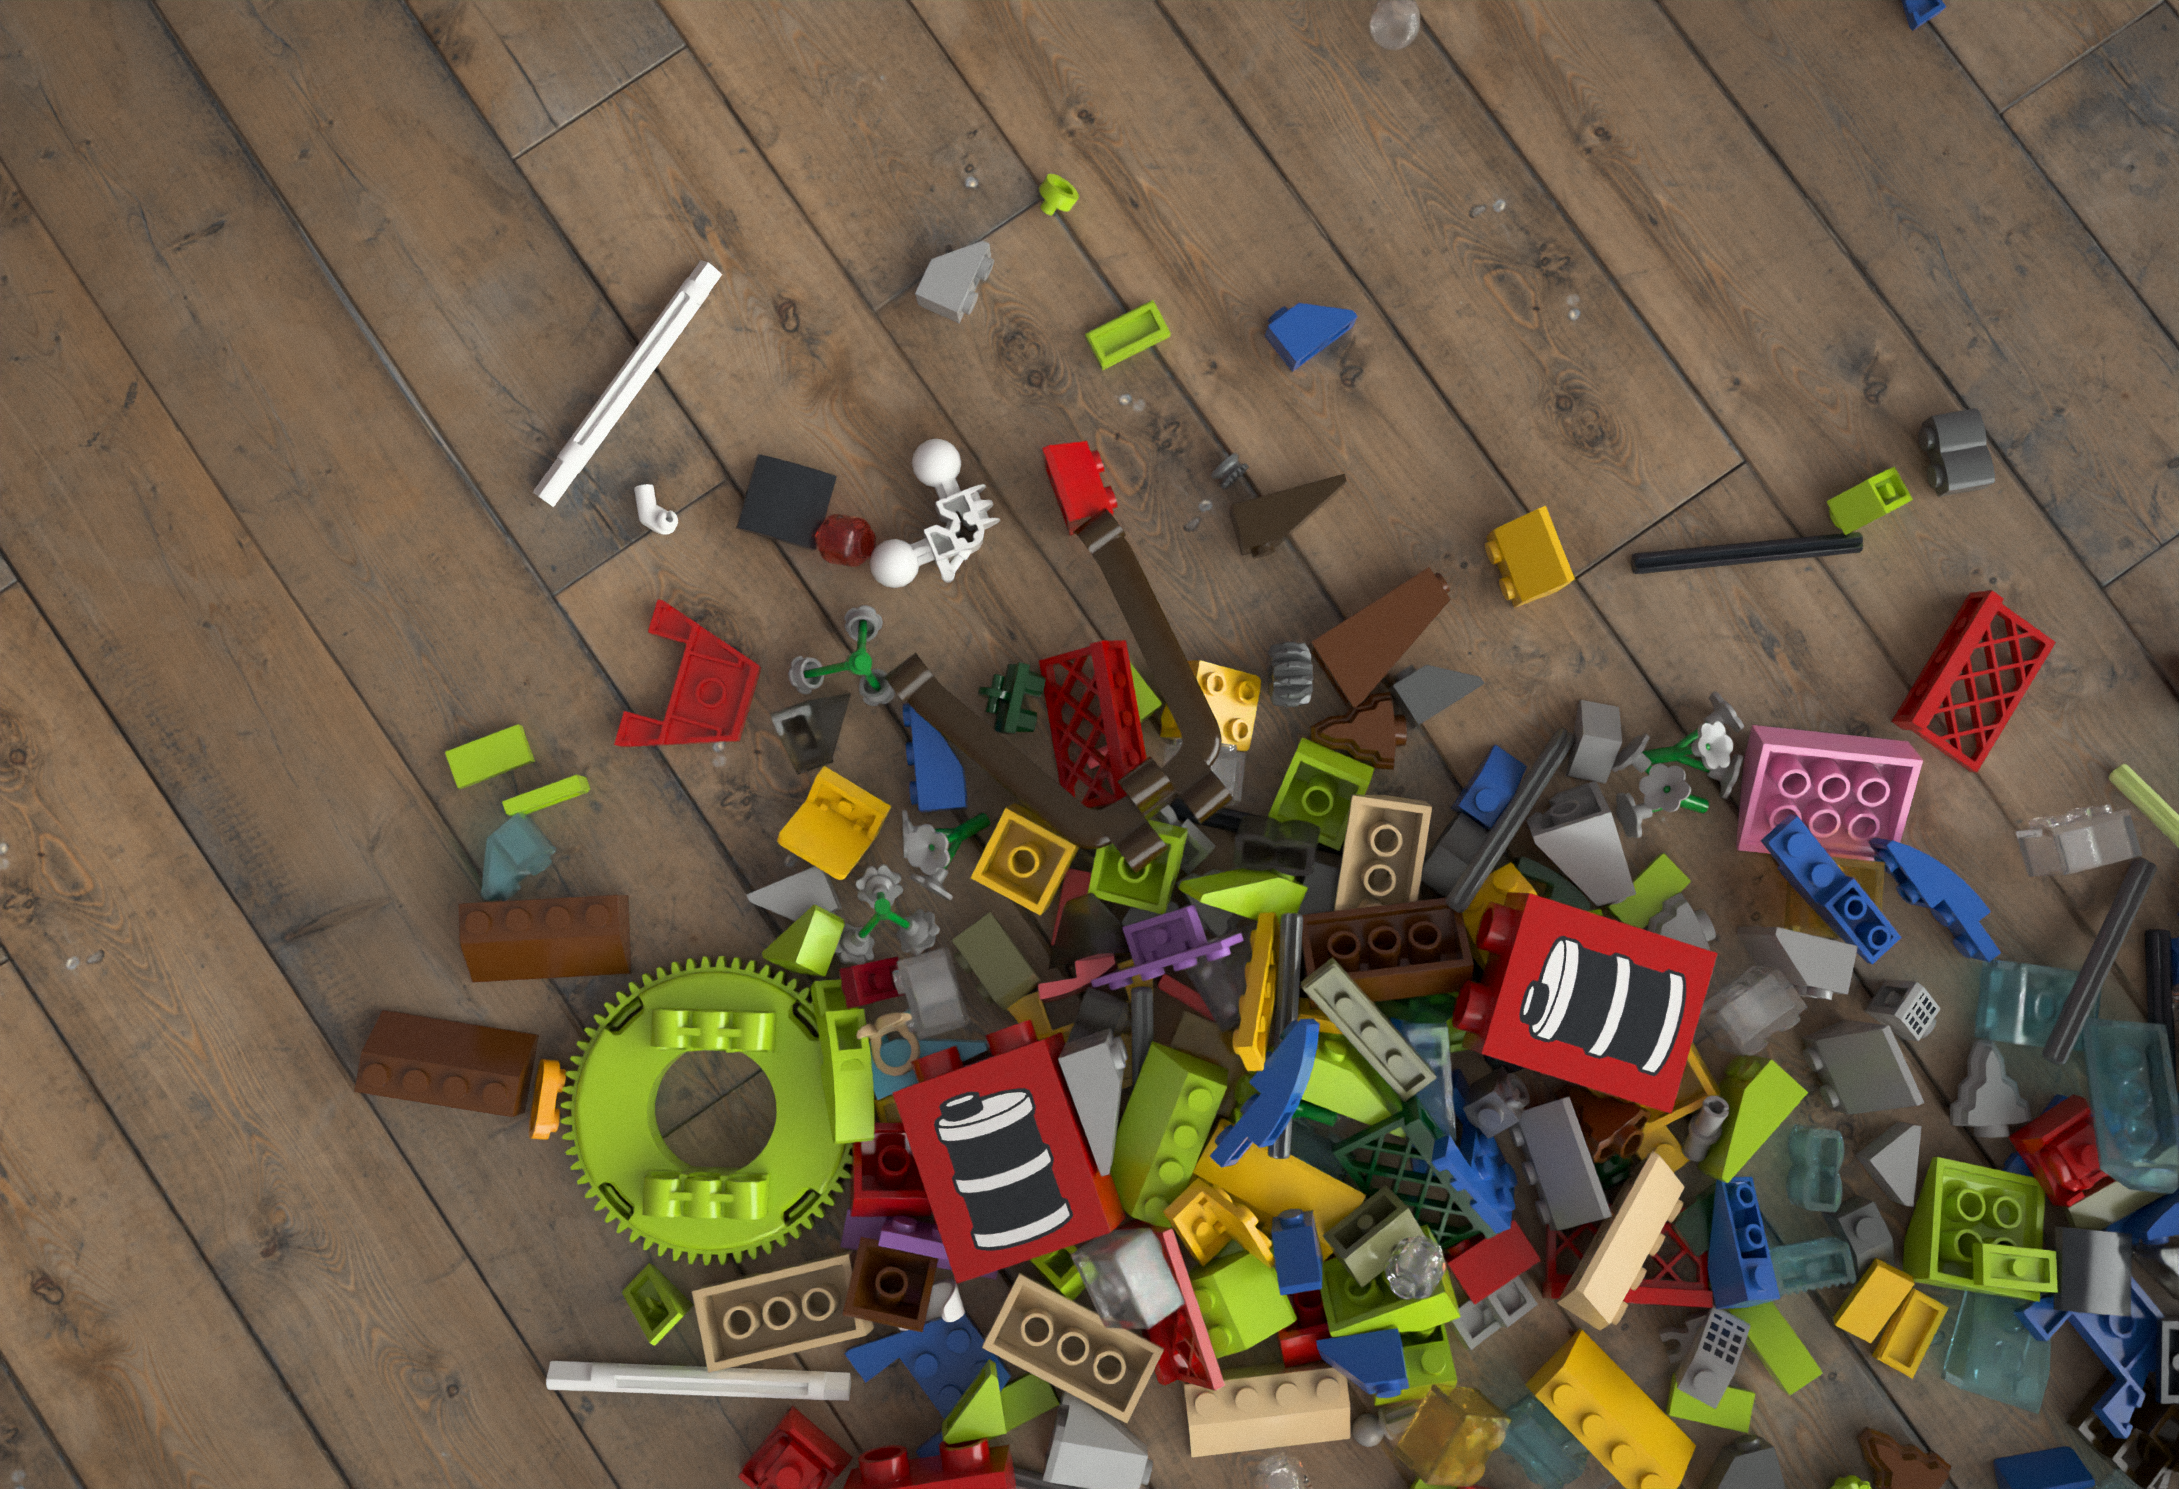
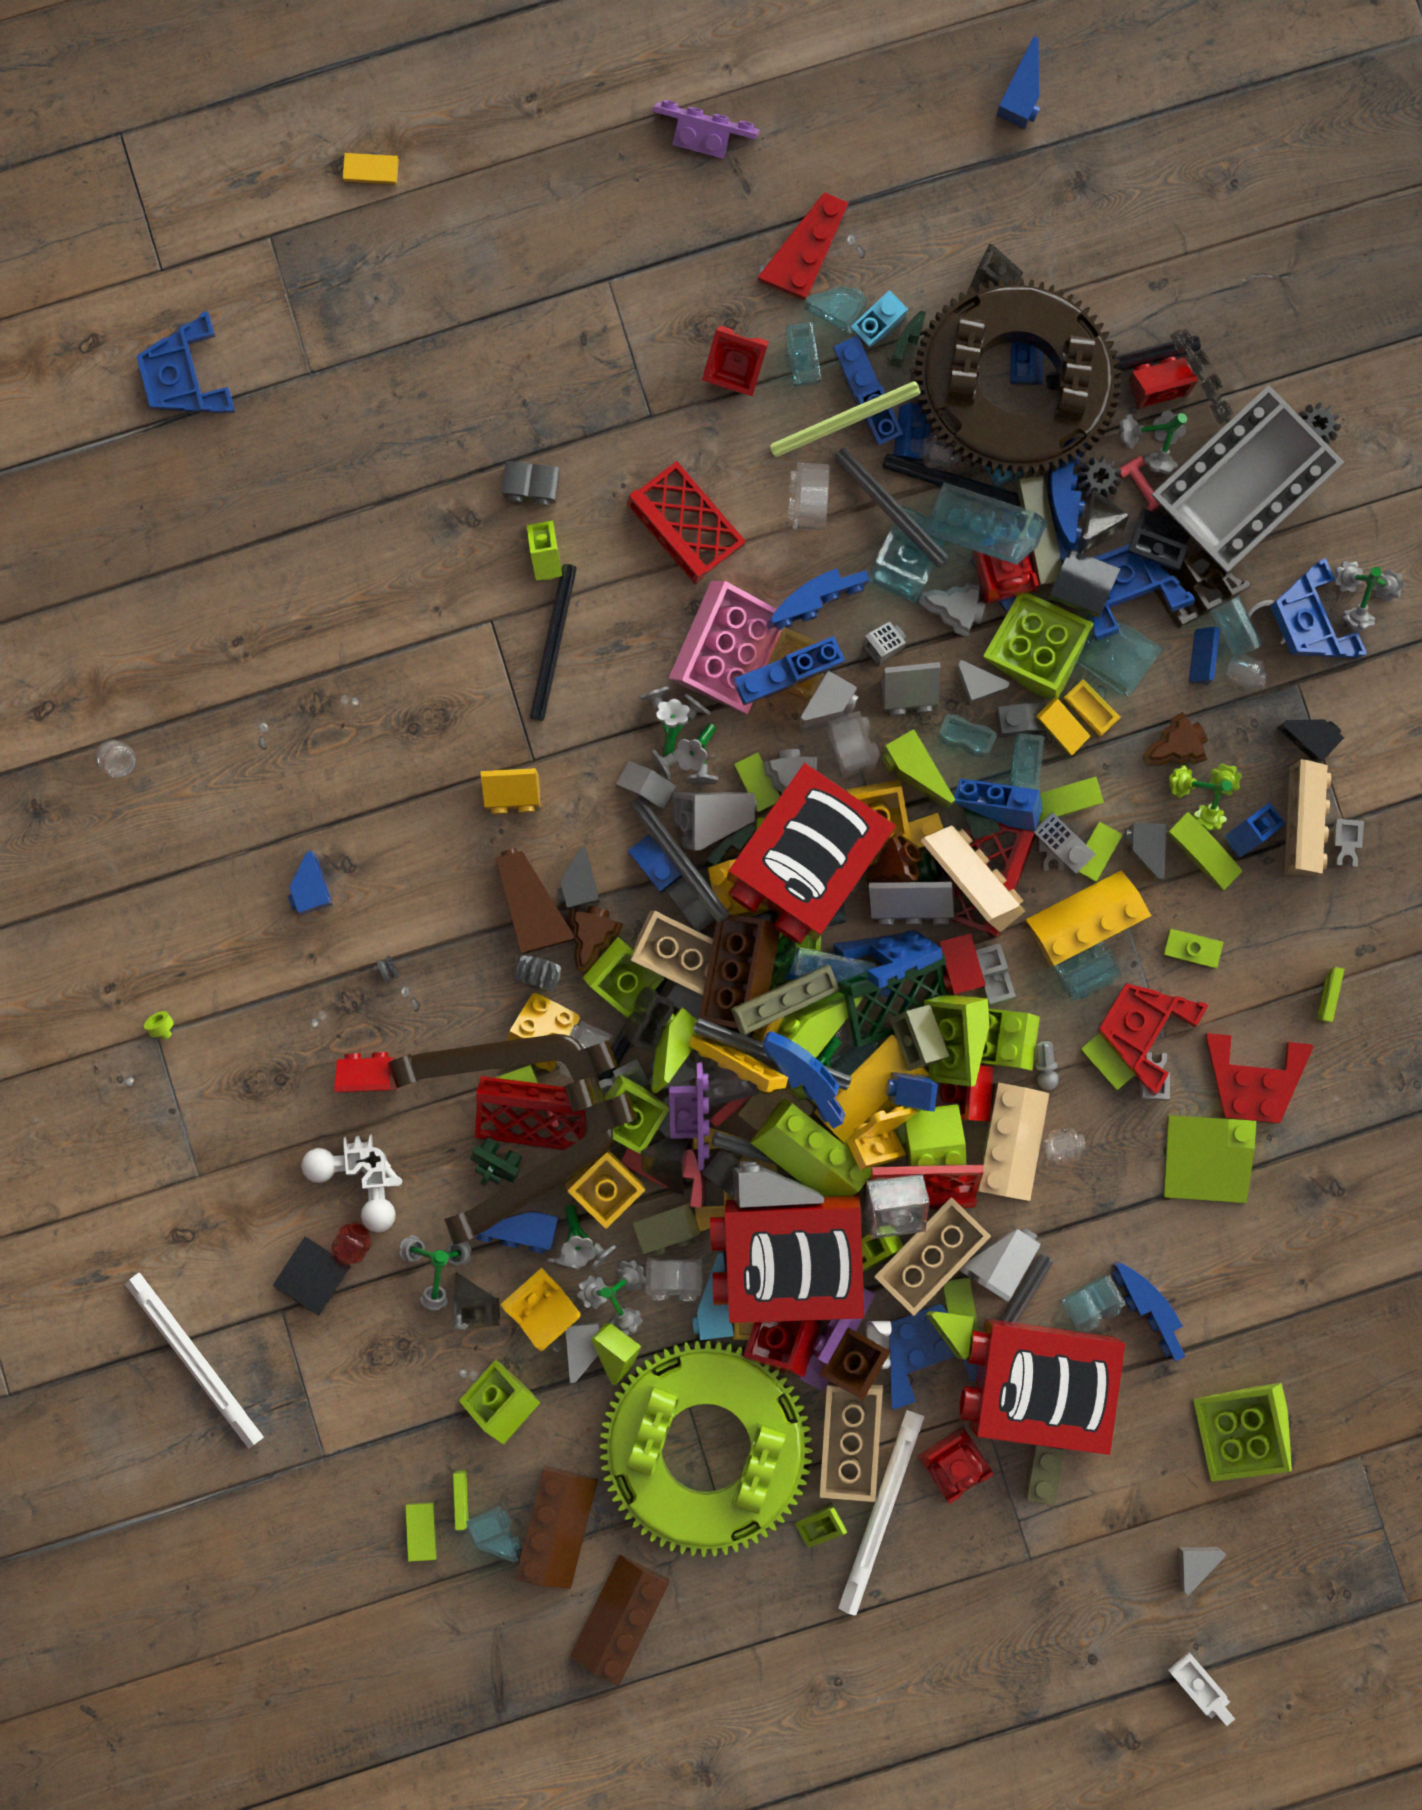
camera: 70 degrees left, 0 degrees up
(543, 1115) = (671, 1564): light orange plate -> none
(652, 515) = (291, 1370): white arm -> none
(692, 806) = (499, 1402): none -> lime slope
(708, 694) = (424, 1367): red wing -> none
(846, 1064) = (700, 1347): lime slope -> none
(869, 982) = (654, 1317): dark red plate -> none
(884, 1025) = (684, 1314): tan piece -> none
(952, 281) = (196, 1115): light grey slope -> none
(1127, 335) = (271, 1007): lime tile -> none
(1272, 518) = (429, 951): dark brown slope -> none
(1369, 1360) = (997, 1066): blue slope -> none
(1415, 1267) = (945, 1018): clear head -> none
(1452, 1436) = (1063, 1027): clear yellow brick -> none
(1496, 1102) = (859, 929): flat silver brick -> none
(1705, 1128) = (918, 800): light grey pin -> none
(2015, 1268) = (1066, 633): lime plate -> none

